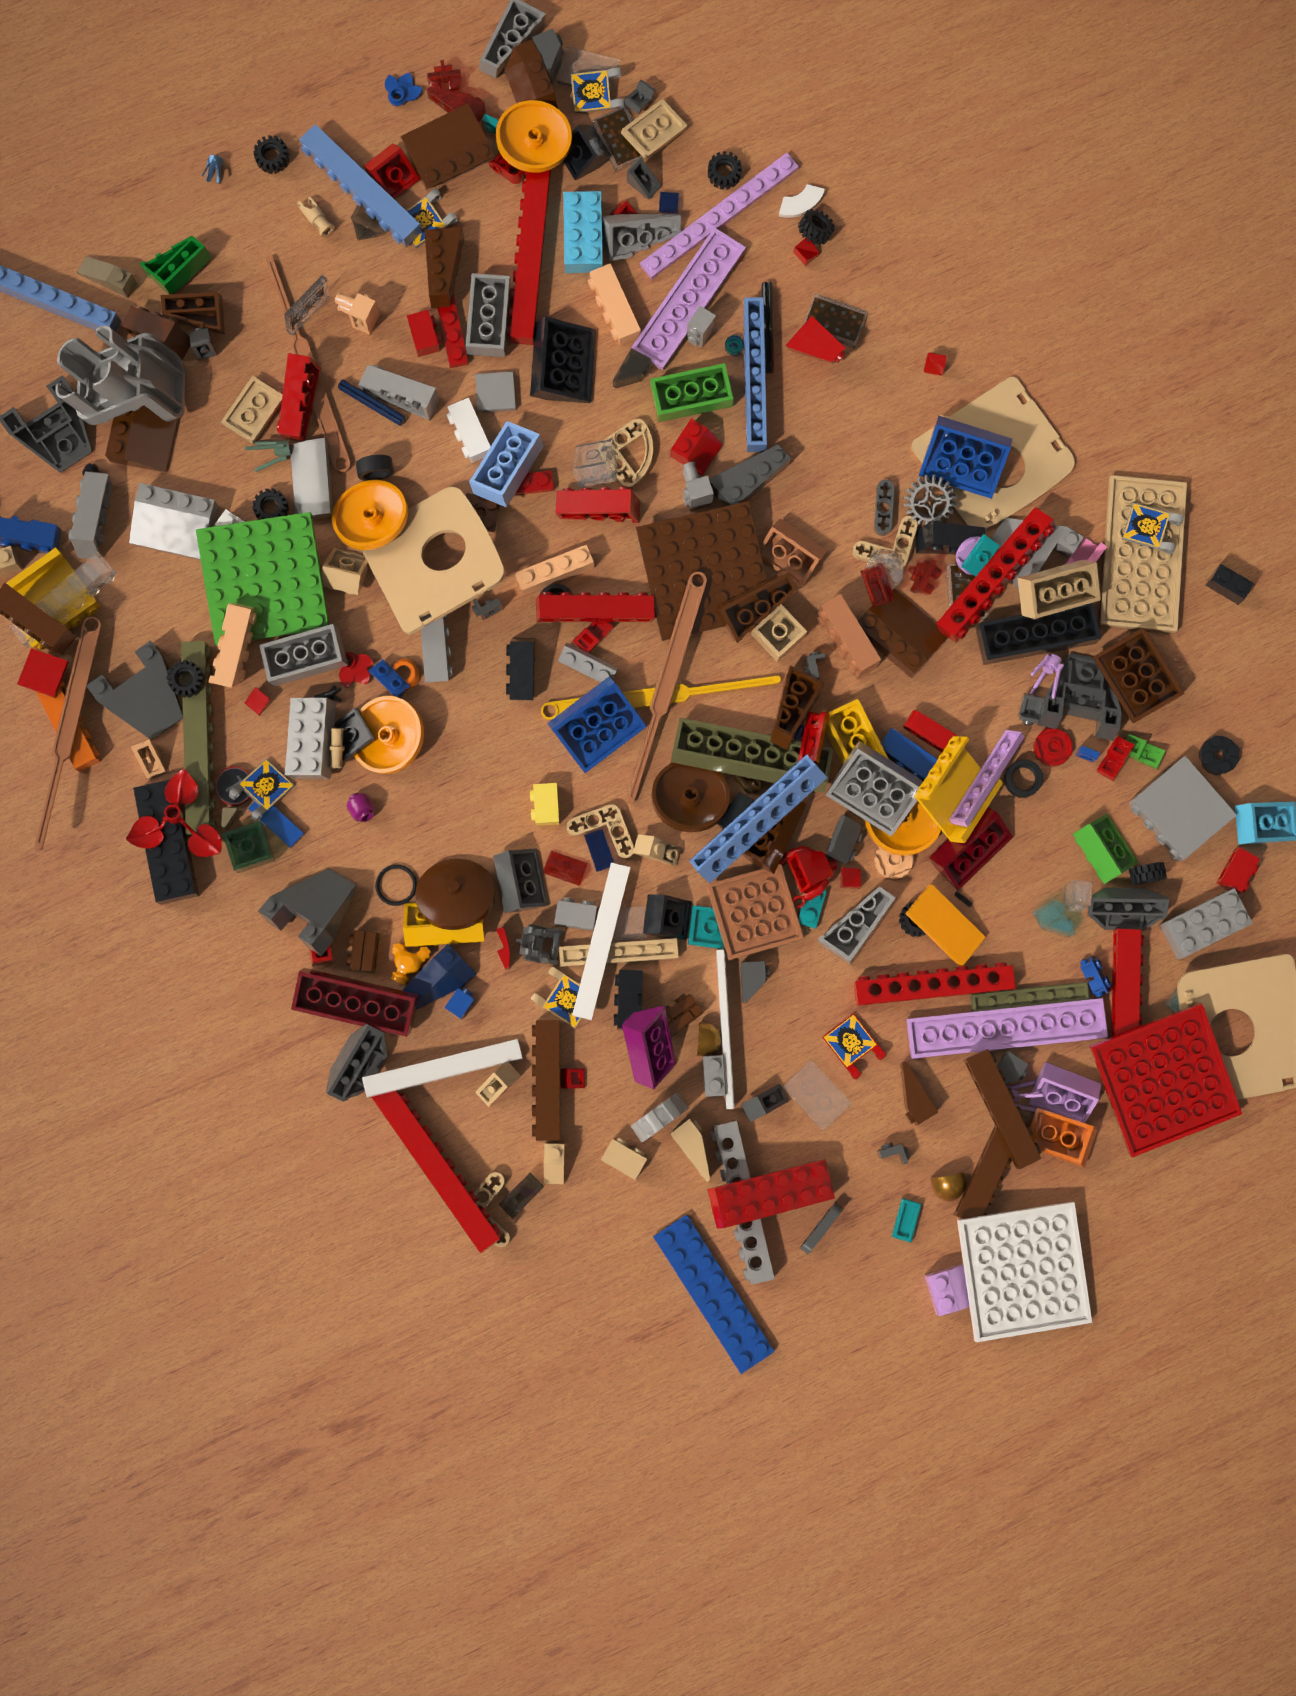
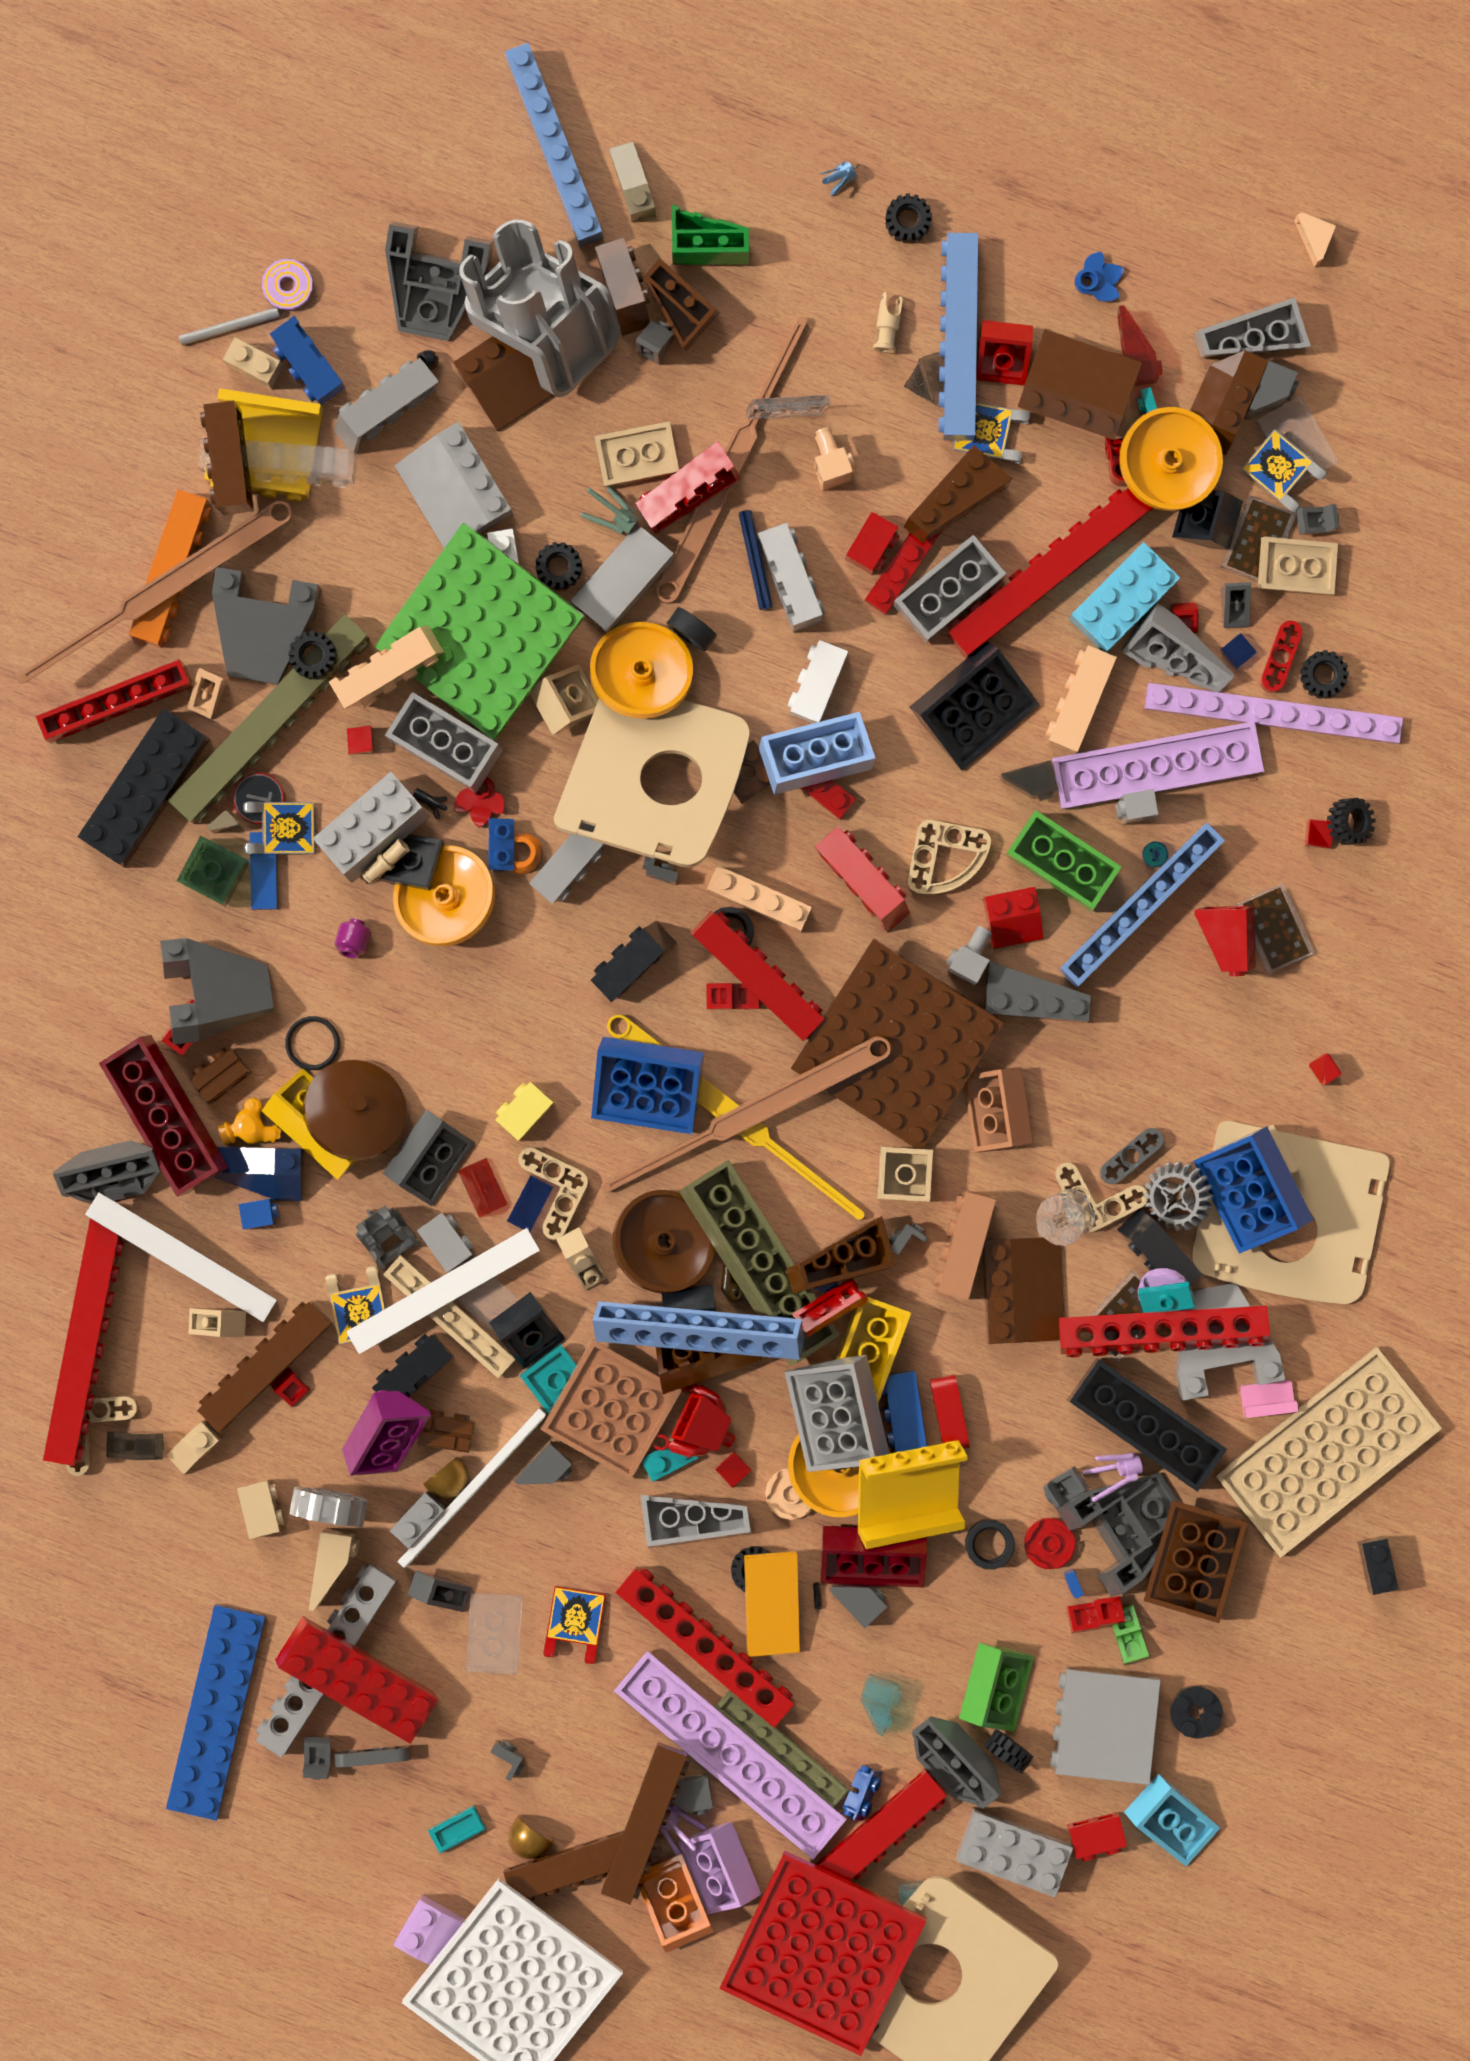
camera: 50 degrees right, 5 degrees up
(43, 673) = (189, 514): red tile -> none
(103, 811) = (114, 701): none -> red brick
(147, 832) = (202, 755): red plant -> none
(445, 74) = (1158, 317): clear red hips -> none
(495, 392) = (882, 668): light grey tile -> none
(504, 953) = (345, 1210): red slope -> none
(586, 663) = (698, 1018): light grey plate -> none
(595, 463) = (901, 836): clear slope -> none
(693, 175) = (1281, 636): none -> red beam
(752, 606) = (908, 1126): reddish brown wedge -> none
(768, 327) = (1204, 870): black axle -> none
(793, 1260) = (317, 1758): none -> dark grey bracket
(799, 204) = (1365, 782): white tile -> none
(843, 840) = (761, 1429): dark grey slope -> none
(877, 584) = (1041, 1226): clear red slope -> none
(916, 1101) = (578, 1732): reddish brown slope -> none
(921, 575) = (1096, 1257): clear red hips -> none
(986, 778) = (953, 1509): lavender plate -> none
(991, 876) = (860, 1601): none -> dark grey slope
(1059, 589) = (1204, 1406): tan brick -> none
(1077, 895) = (921, 1704): clear brick -> none
(1148, 527) = (1358, 1432): flag -> none

